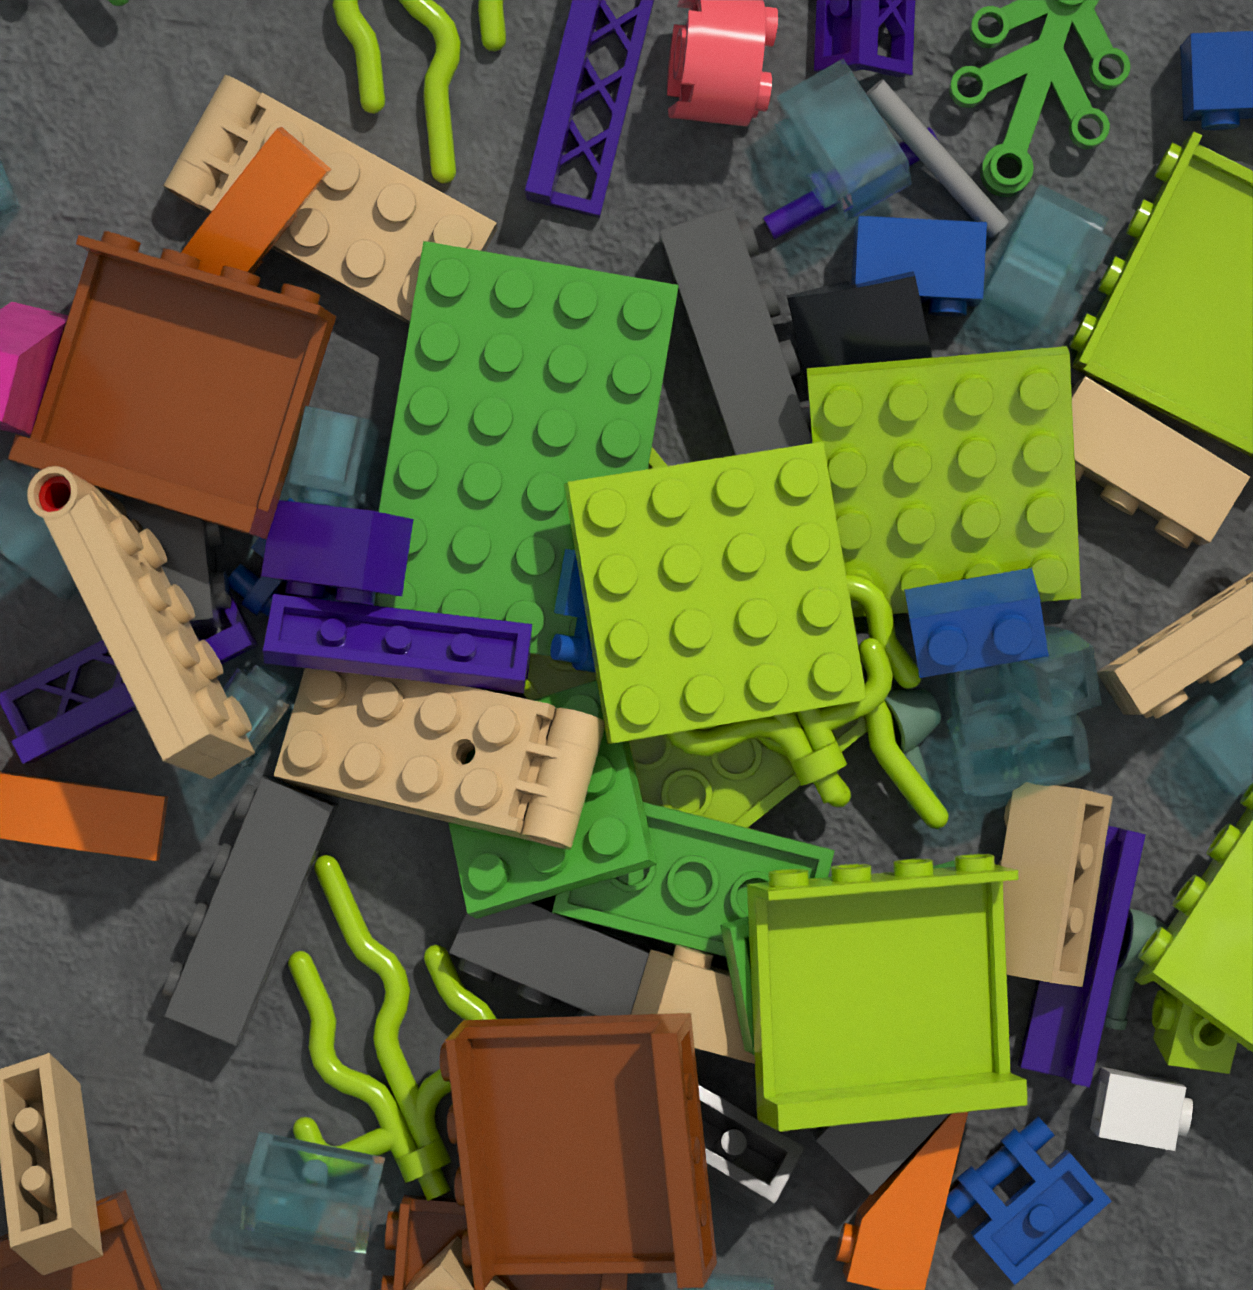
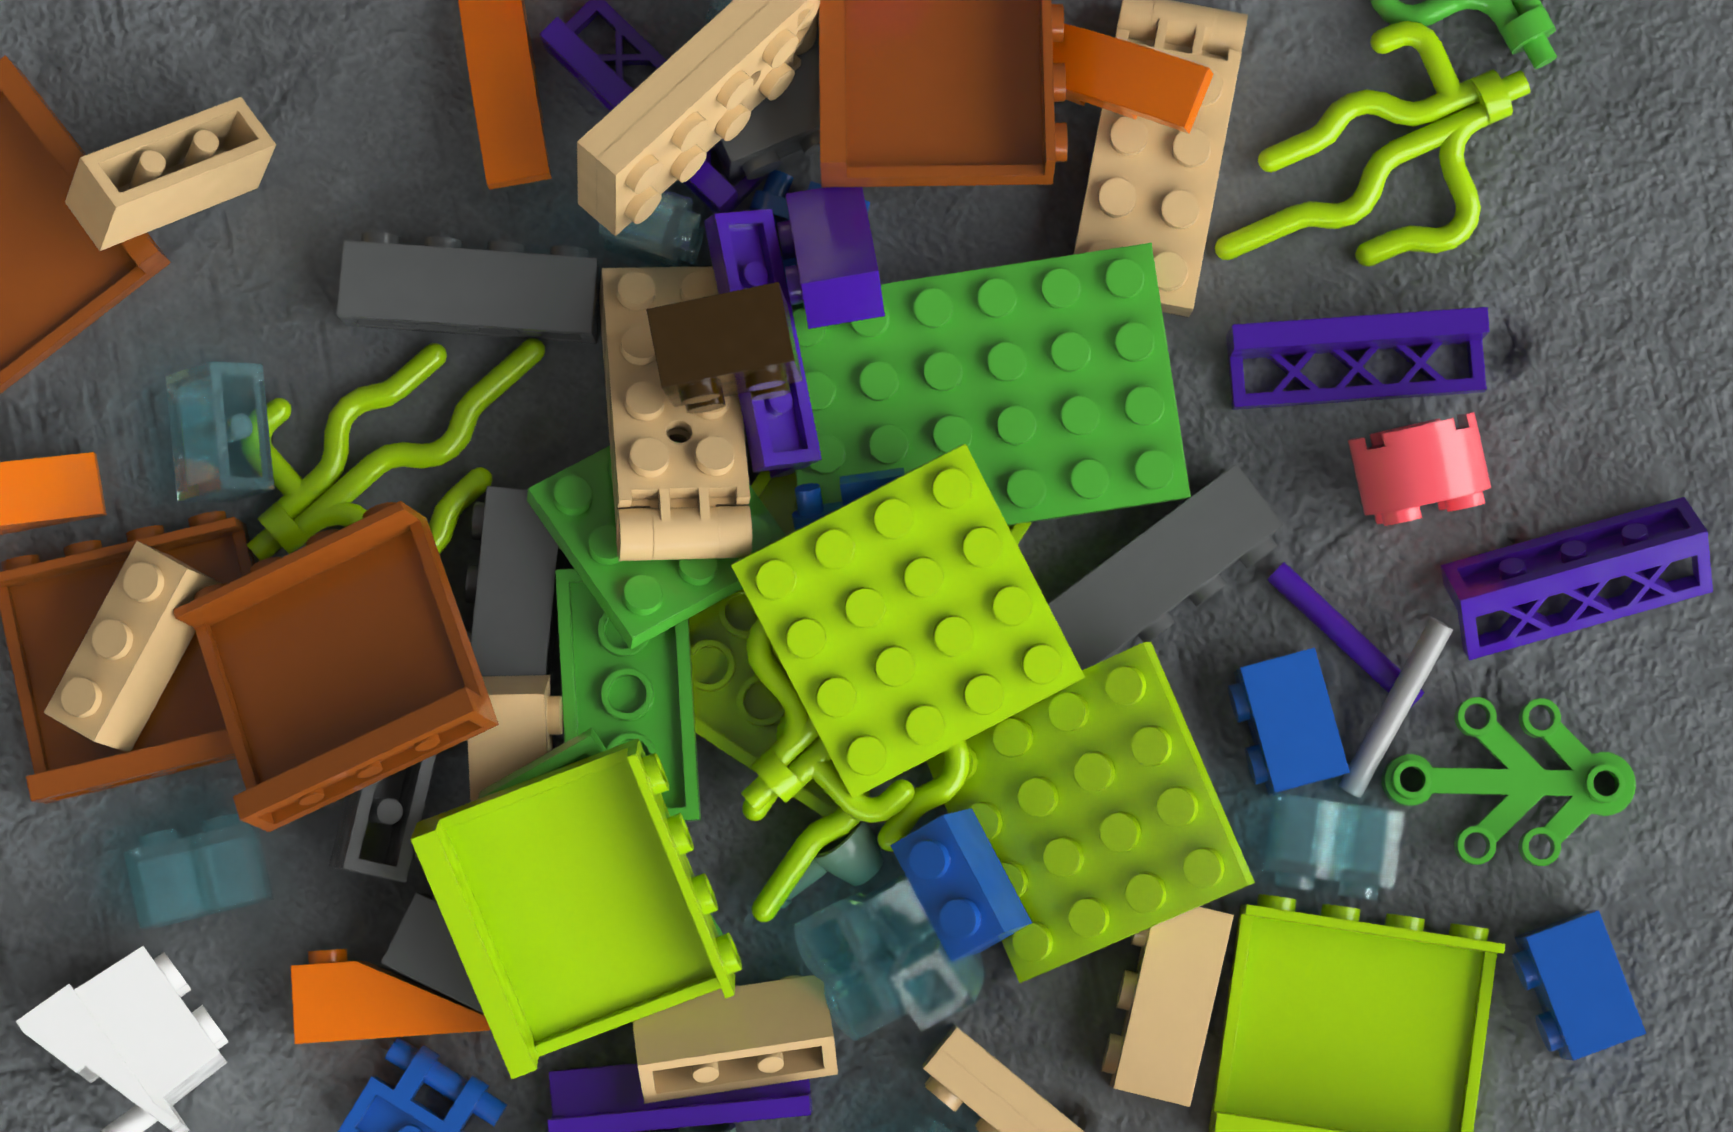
camera: 75 degrees right, 5 degrees down
(333, 457) = (919, 227): clear light blue brick -> none
(404, 682) = (725, 347): none -> dark brown brick
(842, 140) = (1381, 611): clear light blue brick -> none
(860, 323) = (1213, 683): black slope -> none

